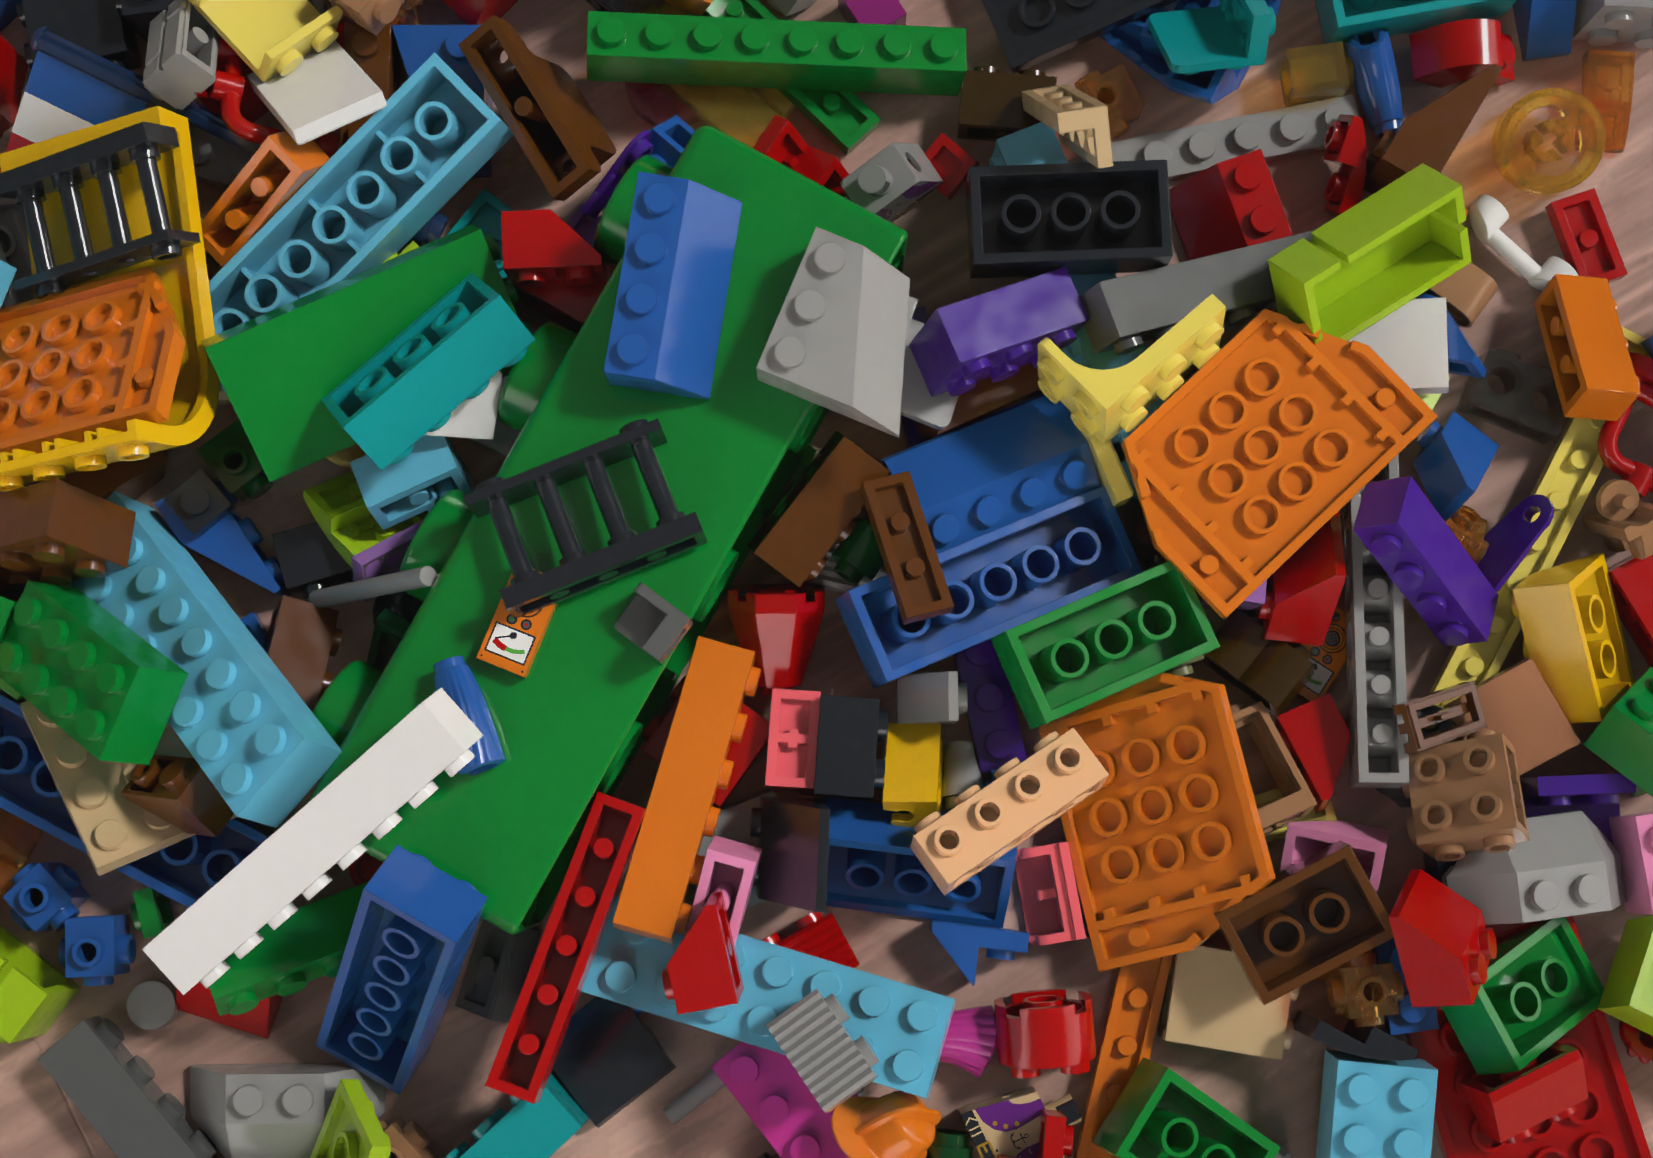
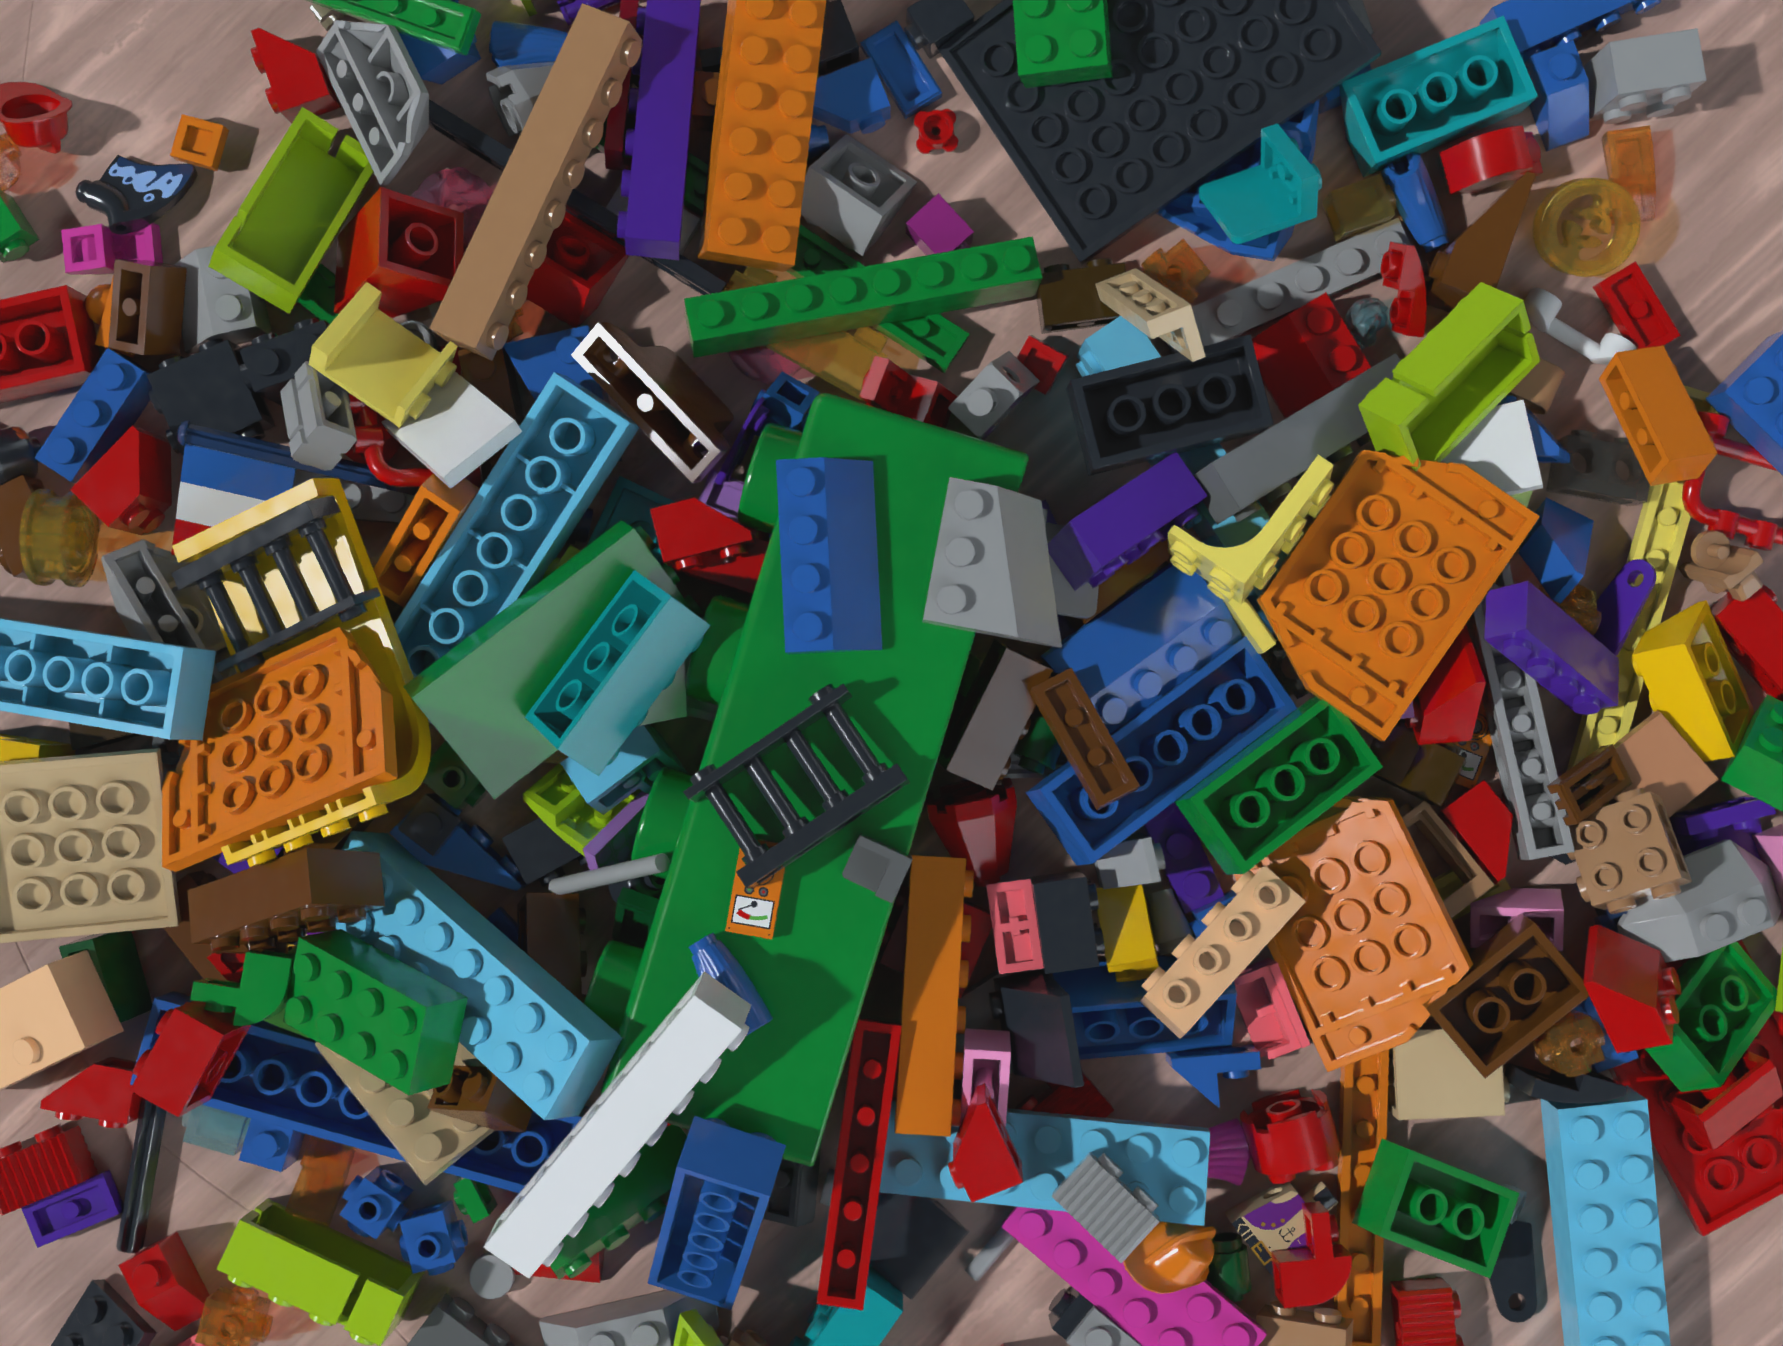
camera: 10 degrees left, 5 degrees up
(1298, 191) = (1365, 319): none -> clear light blue plate

